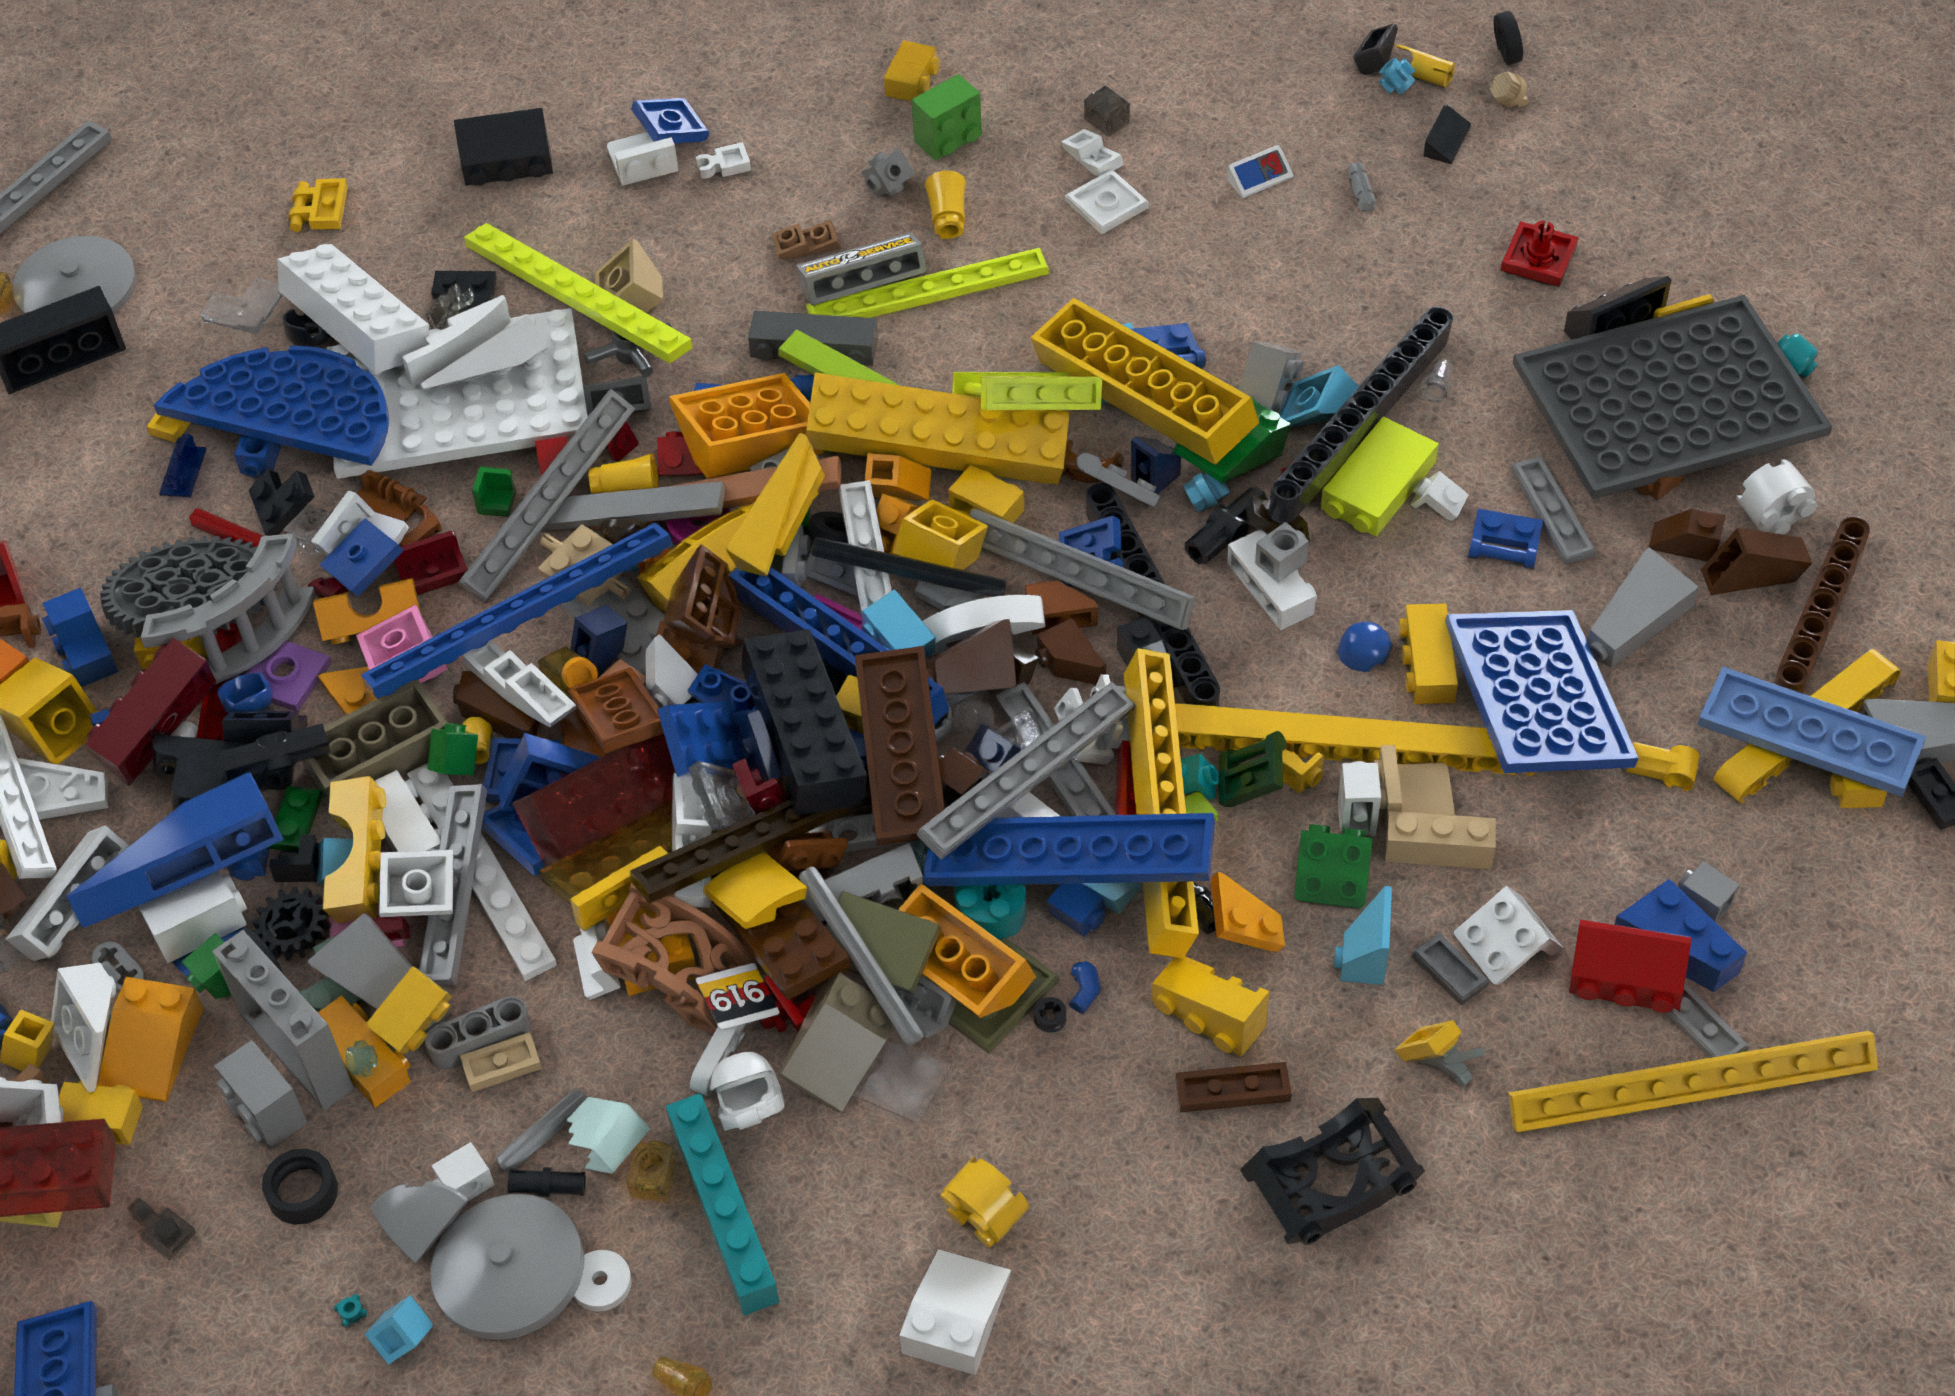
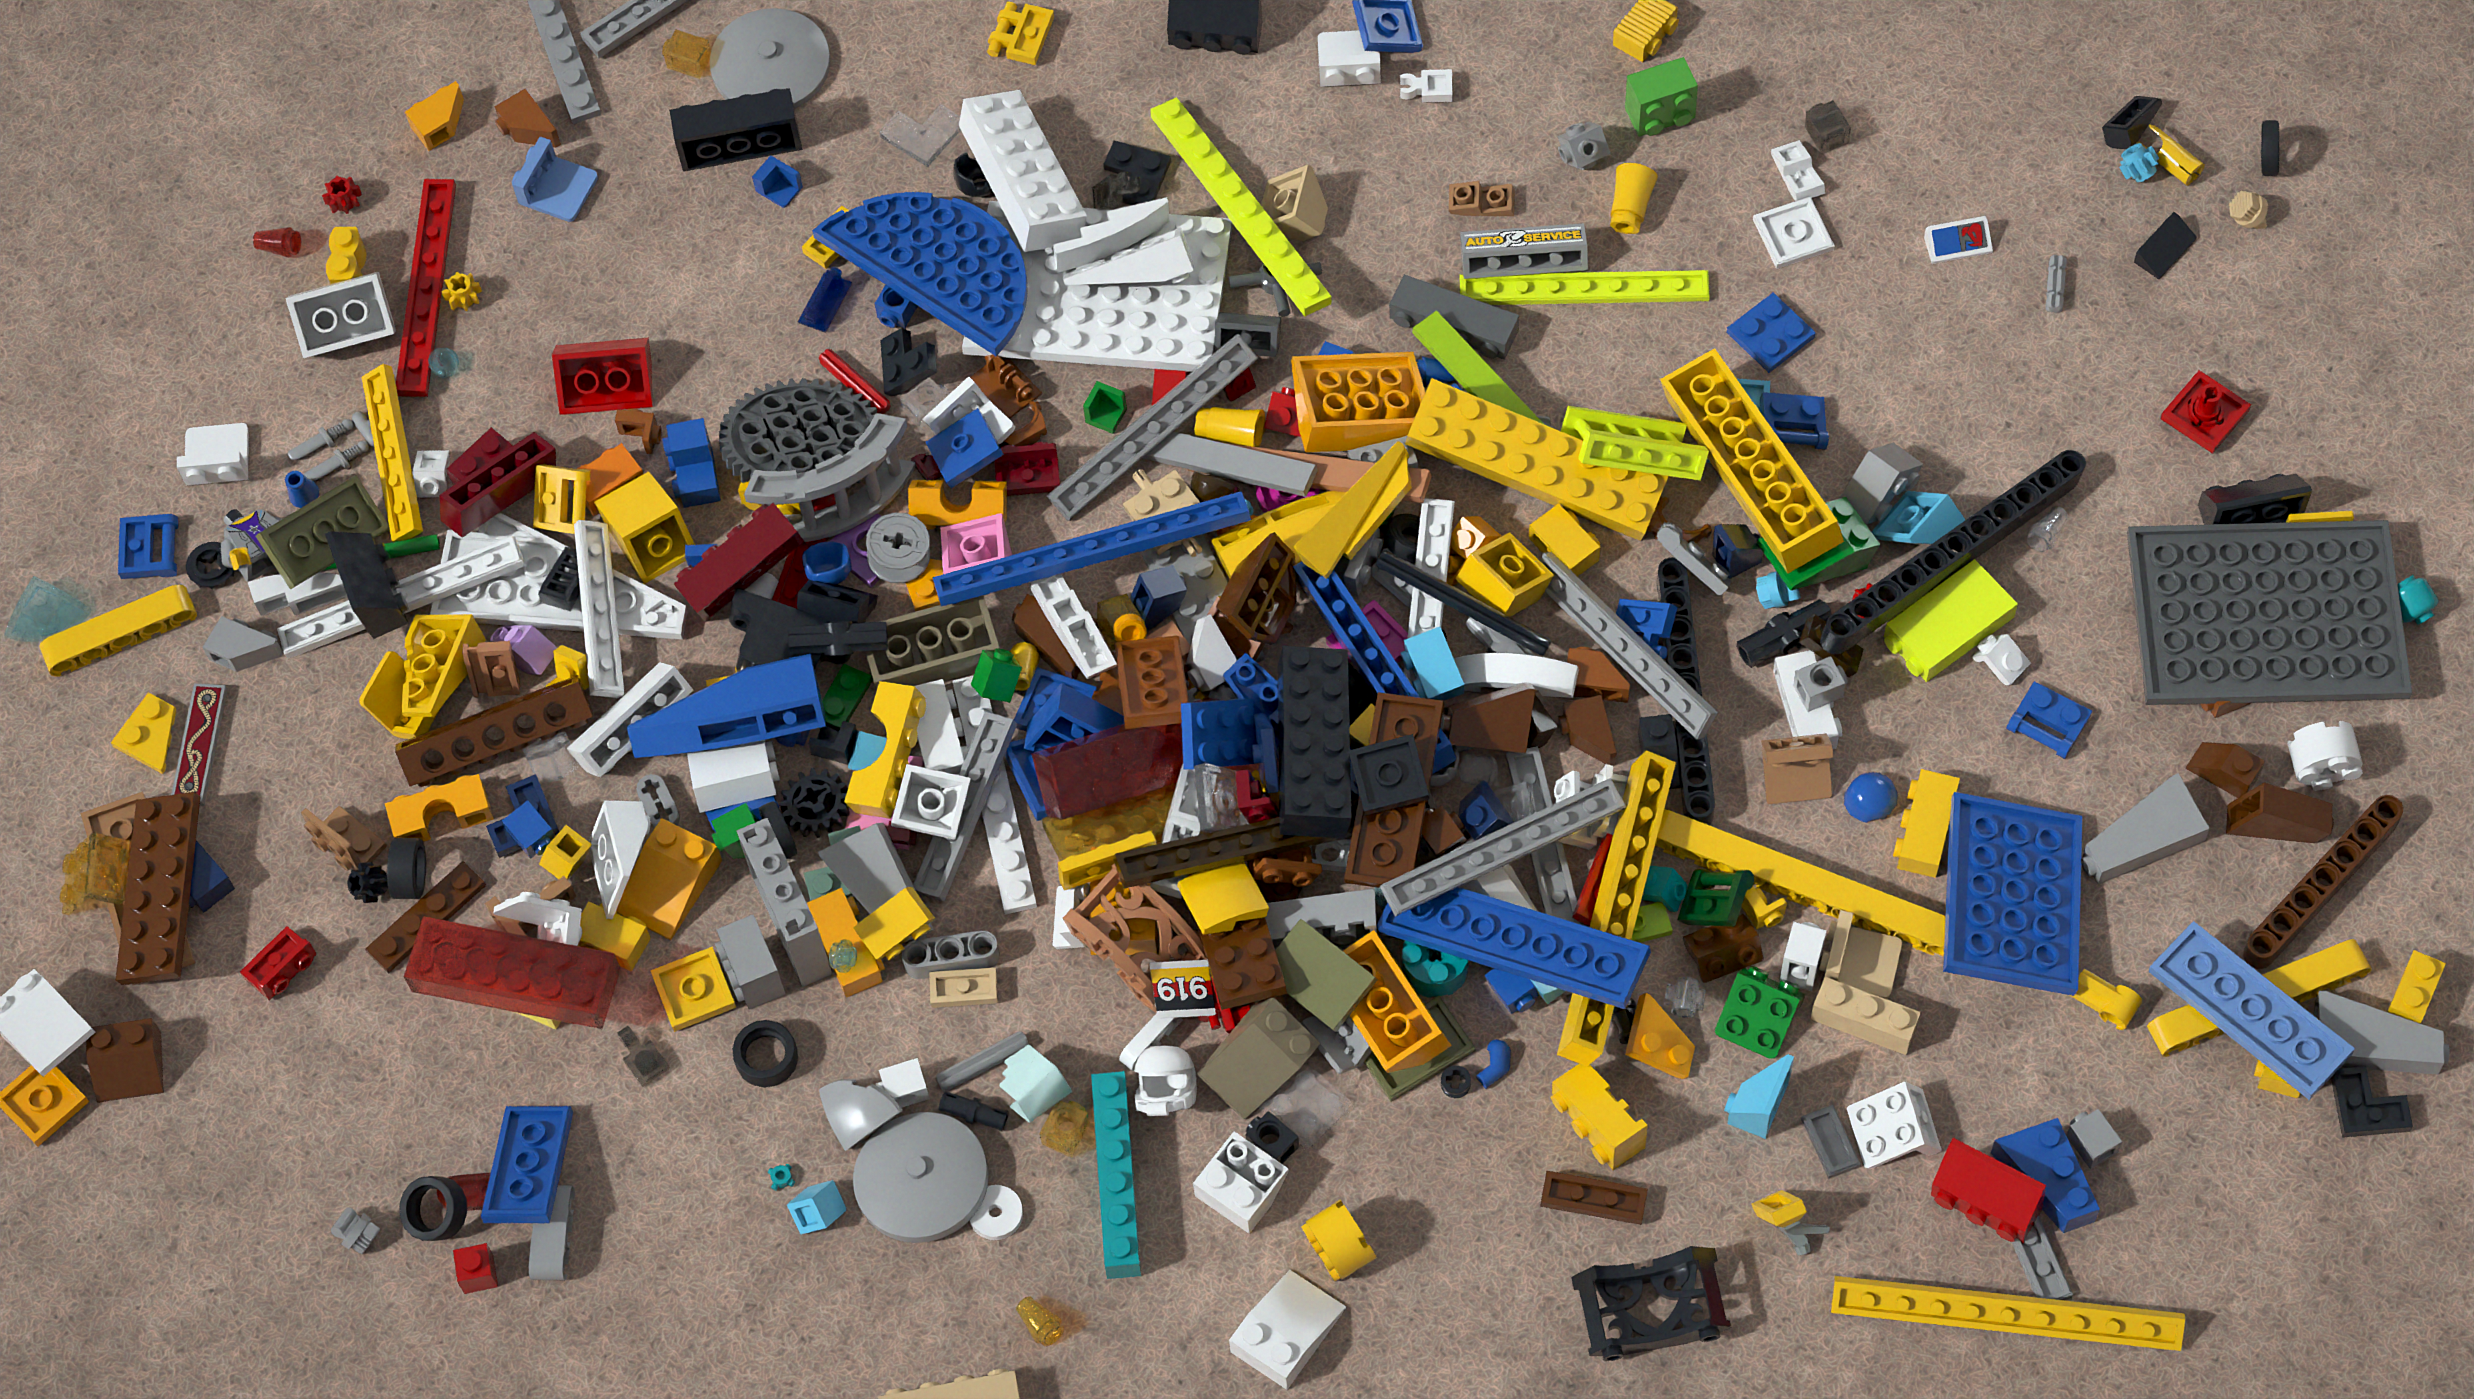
camera: 20 degrees right, 10 degrees up
(107, 377) = (777, 181): none -> blue panel
(202, 1142) = (693, 989): none -> yellow plate
(316, 661) = (913, 542): none -> light grey piece
(858, 1173) = (1240, 1182): none -> white slope
(861, 956) = (1298, 985): light grey axle -> none
(881, 1136) = (1269, 1124): none -> black brick
(892, 725) = (1389, 774): none -> black plate
(897, 477) = (1486, 497): light orange slope -> none
(1116, 284) = (1771, 332): none -> blue plate
(1255, 870) = (1685, 997): none -> clear gear
(1276, 817) = (1724, 949): none -> reddish brown bracket
(1286, 635) = (1797, 768): none -> medium nougat bracket
(1553, 508) = (2107, 701): light grey tile -> none

